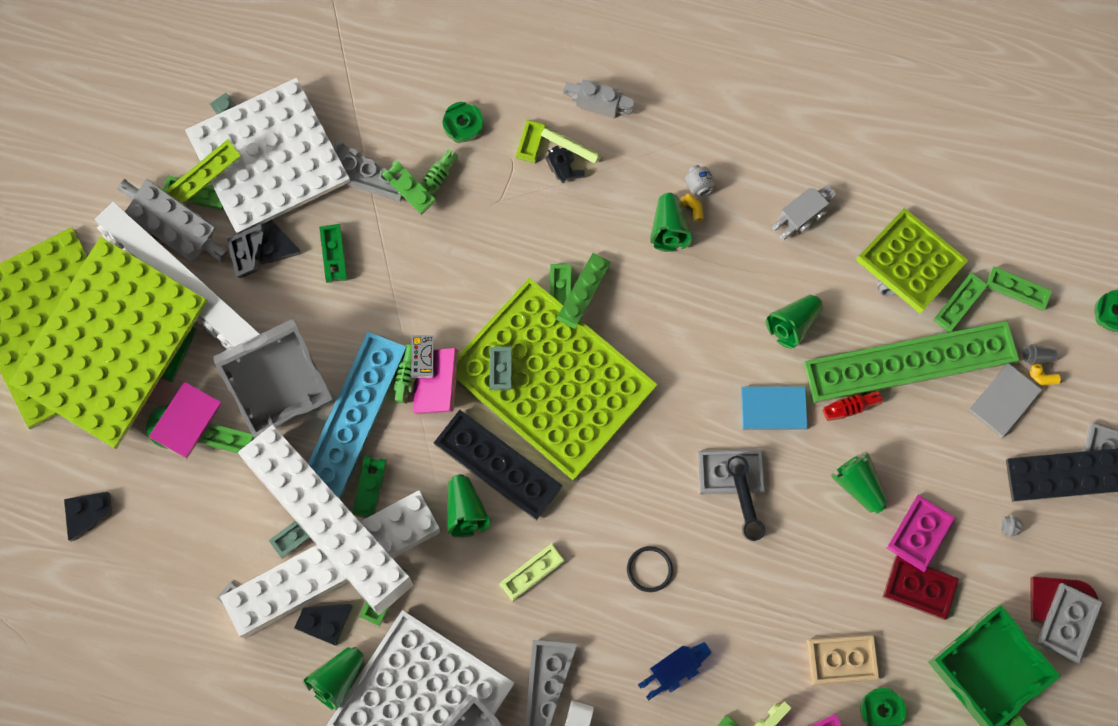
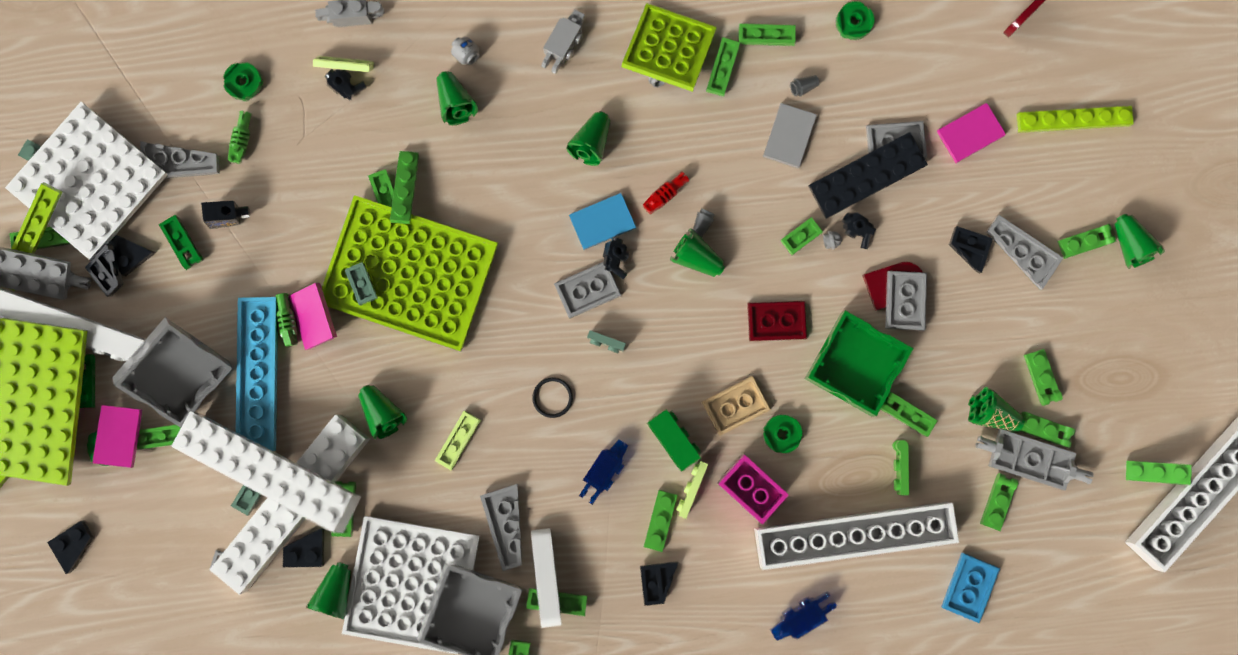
camera: 15 degrees left, 10 degrees up
(369, 487) = (295, 426): green plate -> none
(389, 242) = (216, 213): none -> black torso
(409, 188) = (220, 159): bright green plate -> none
(422, 356) = (291, 300): light grey tile -> none
(498, 465) = (393, 364): black plate -> none
(530, 141) = (308, 74): lime tile -> none
(695, 204) = (470, 73): yellow arm -> none
(723, 527) = (598, 339): none -> sand green plate
(745, 498) = (606, 308): black piece -> none
(764, 666) = (674, 440): none -> green brick
(774, 446) = (613, 254): none -> black piece
(881, 450) = (703, 222): none -> dark grey cone
(910, 362) = (700, 135): bright green plate -> none
(921, 533) = (760, 276): dark pink tile -> none
(980, 509) = (801, 236): none -> bright green plate
(1042, 378) = (813, 104): yellow arm -> none
(1045, 521) = (858, 225): none -> black piece

